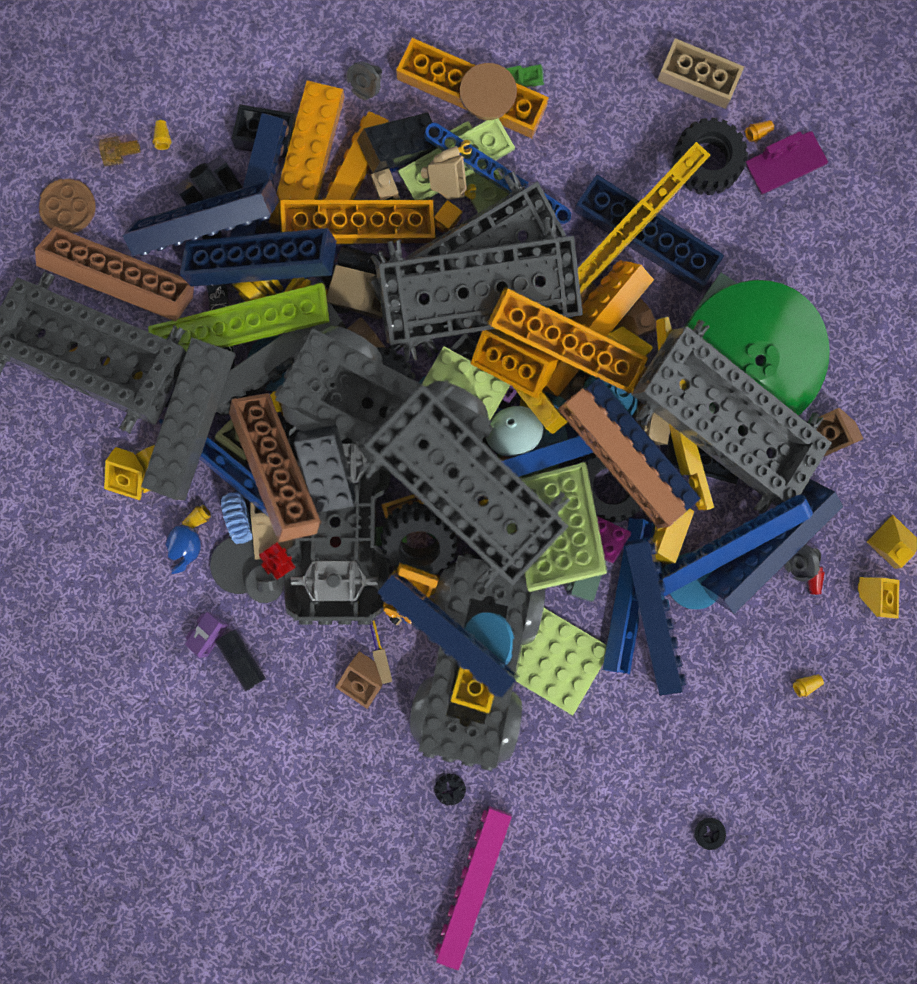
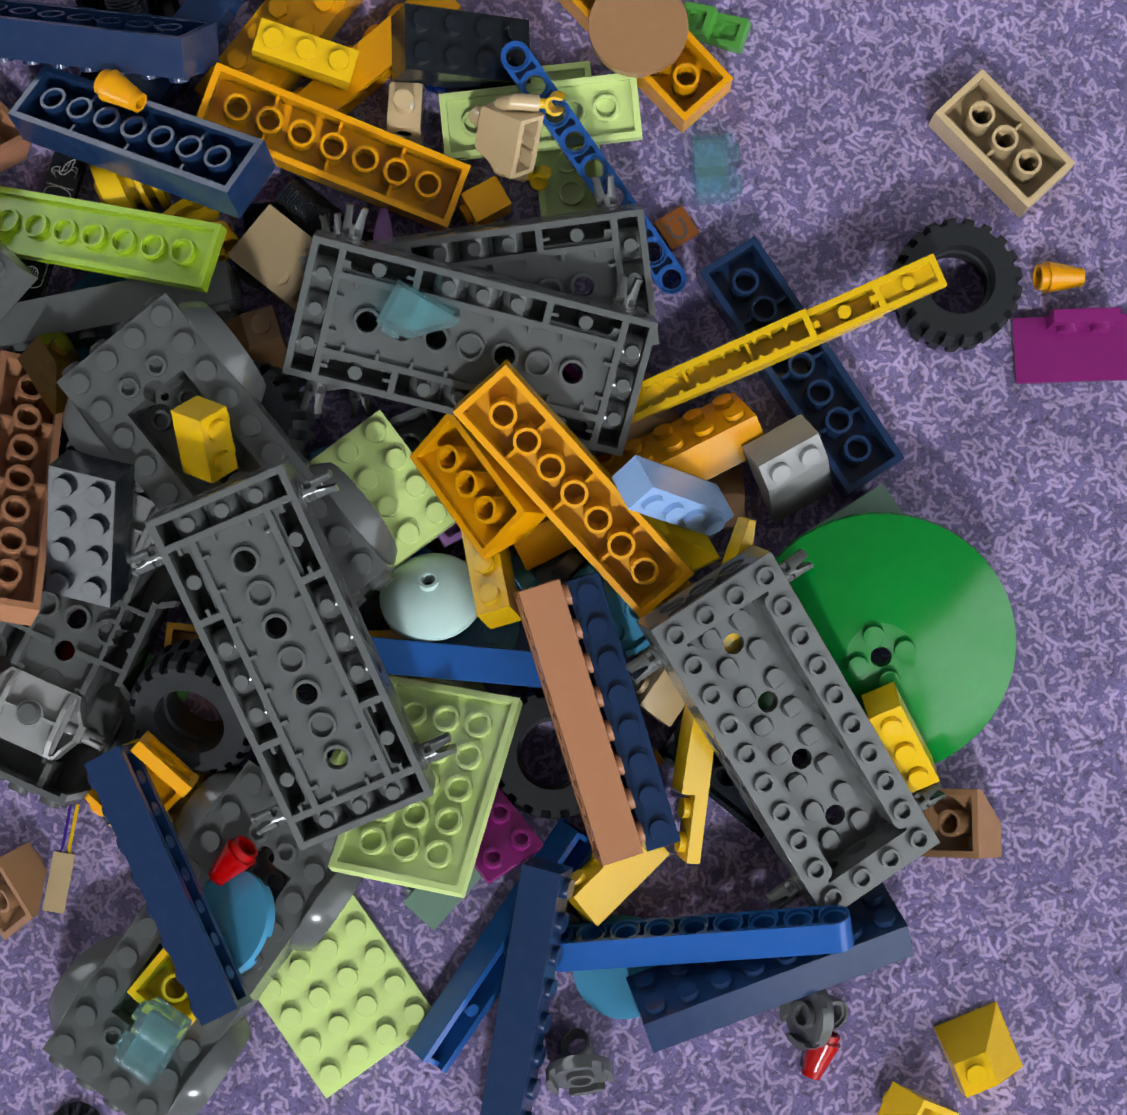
camera: 25 degrees right, 0 degrees up
(236, 236) = (119, 91): none -> light orange cone
(262, 396) = (44, 365): none -> dark brown slope
(321, 178) = (304, 54): none -> yellow brick
(367, 395) = (204, 439): none -> yellow brick
(447, 284) = (413, 313): none -> clear light blue slope
(475, 608) = (234, 859): none -> red cone
(476, 718) = (152, 1040): none -> clear light blue brick
(552, 187) = (676, 228): none -> dark orange tile
(558, 149) = (715, 169): none -> clear light blue brick
(618, 323) = (672, 496): none -> light blue brick
(668, 285) = (789, 467): none -> light grey slope
(699, 642) = (579, 1072): none -> dark grey tile
(788, 396) = (900, 736): none -> yellow brick

